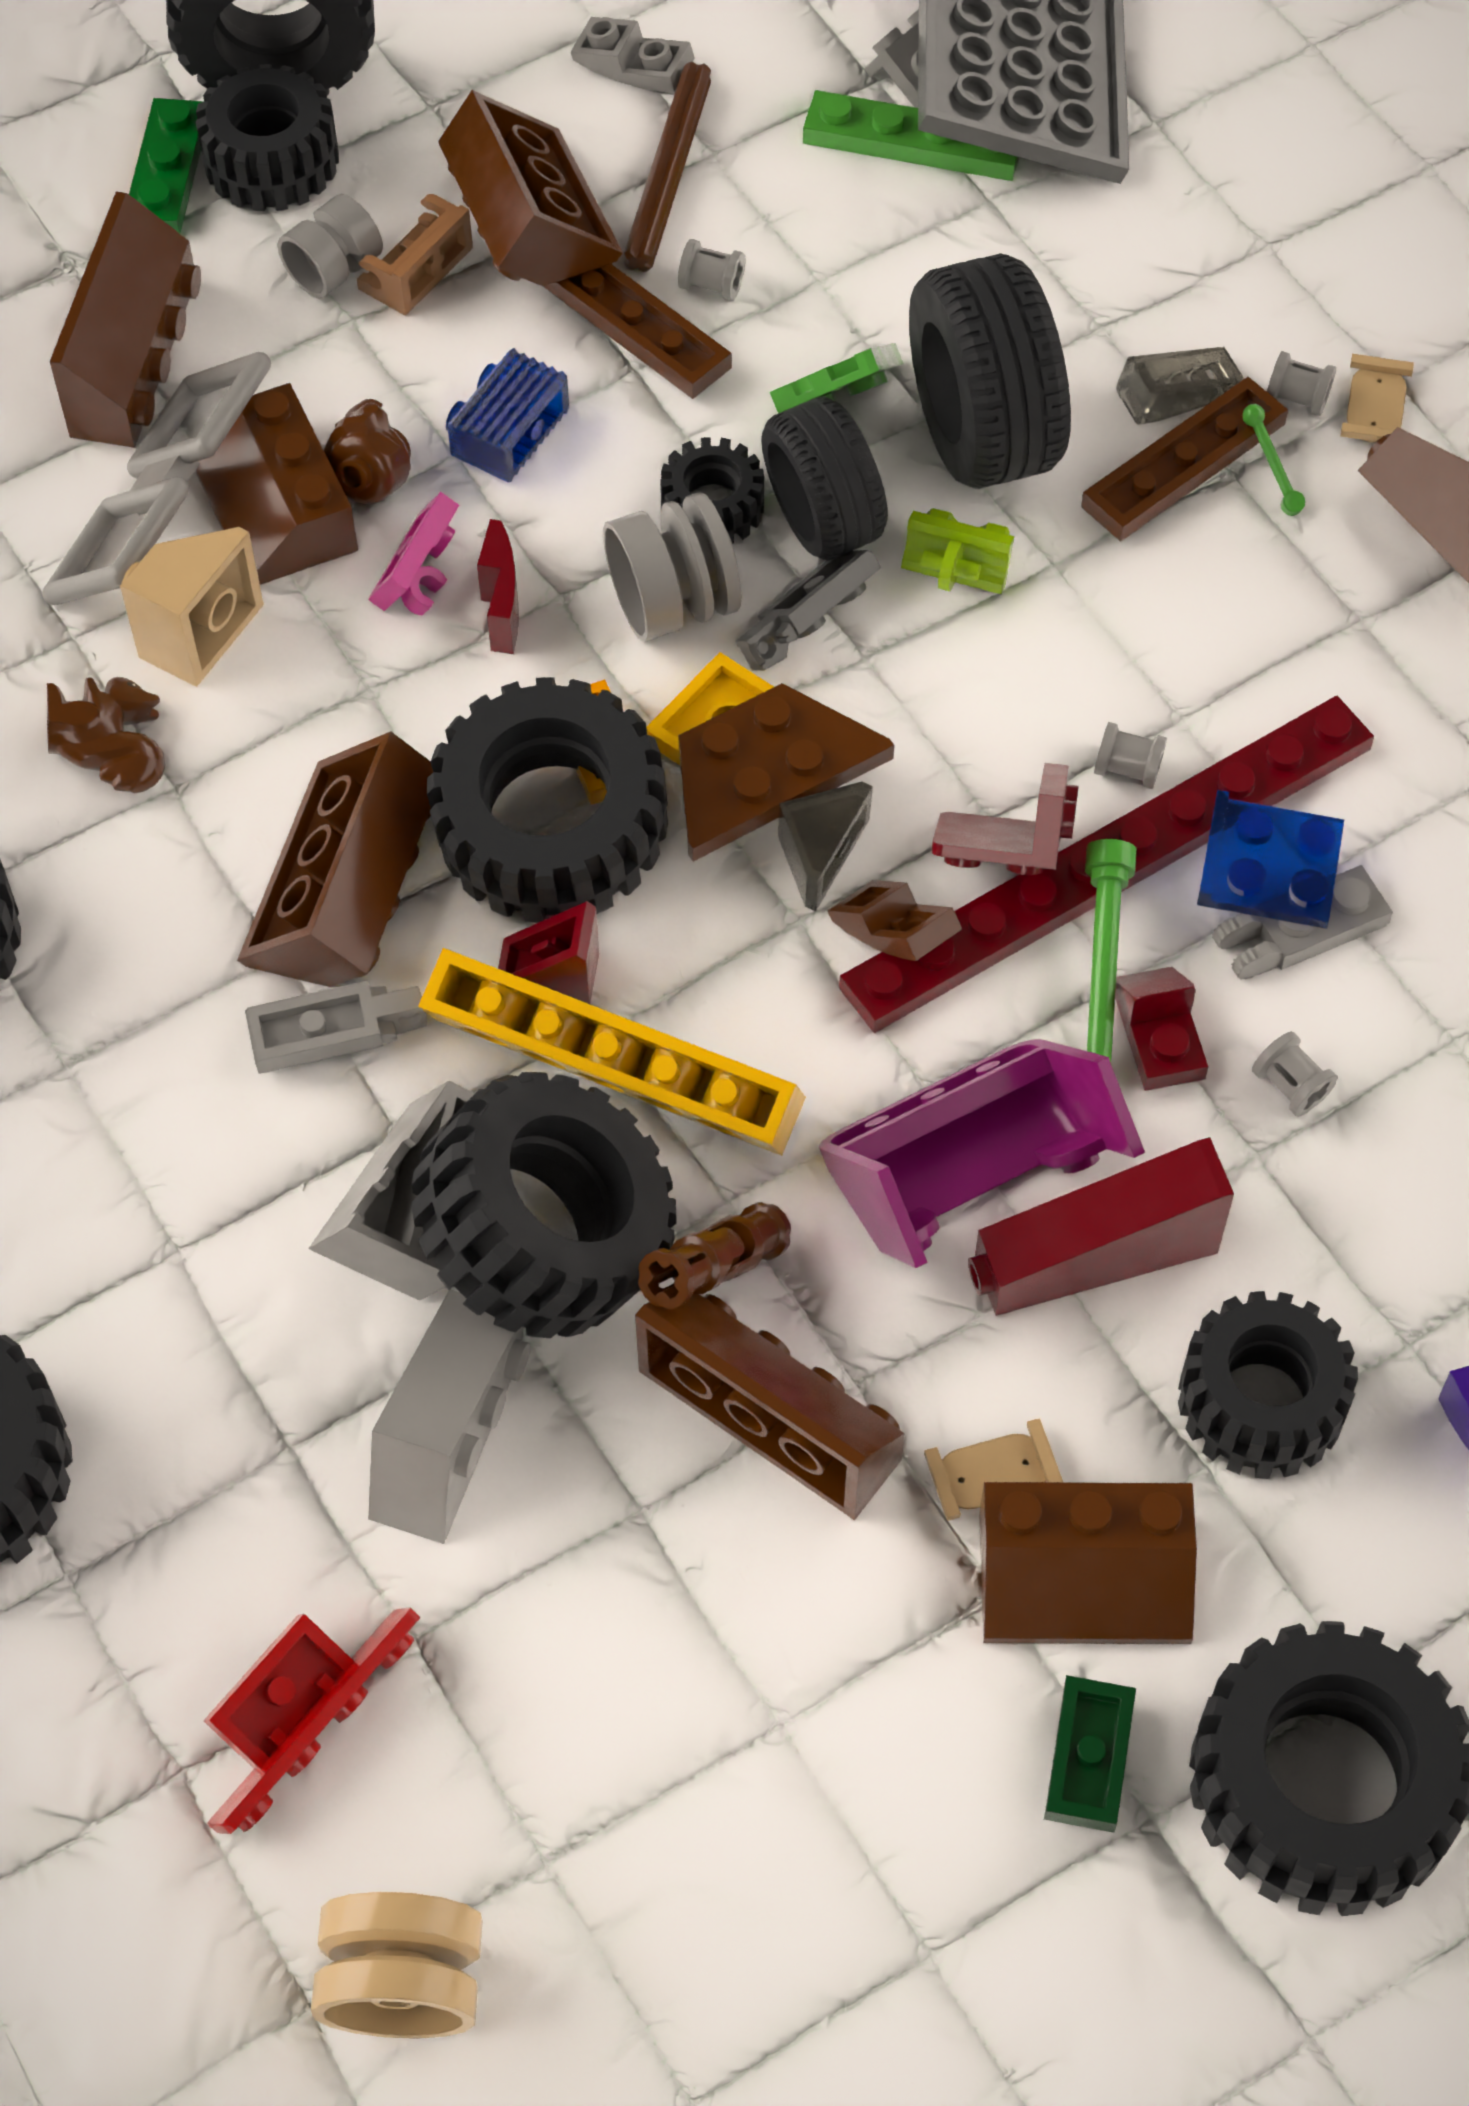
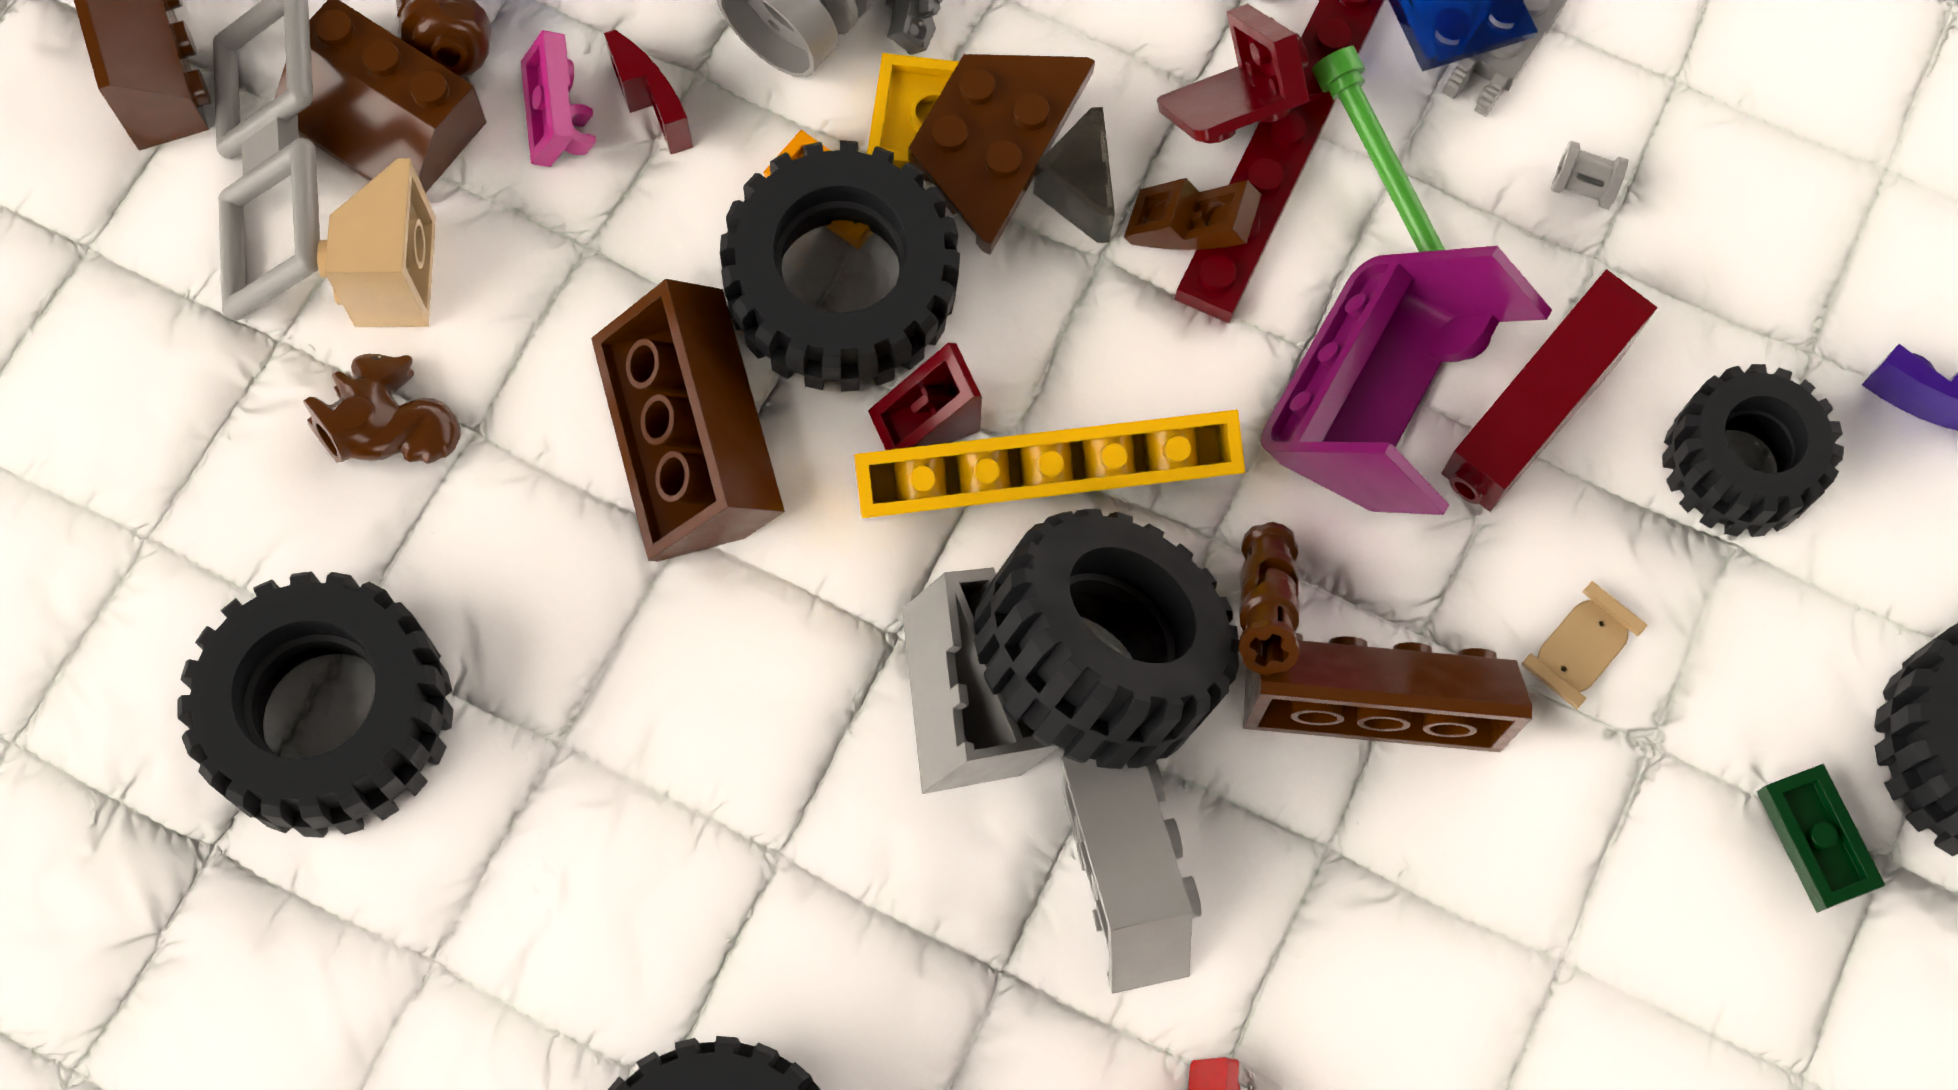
camera: 35 degrees left, 10 degrees up
(330, 1024) = (776, 574): light grey hinge -> none
(1087, 1562) = (1714, 681): reddish brown slope -> none
(1160, 1027) = (1456, 191): dark red slope -> none

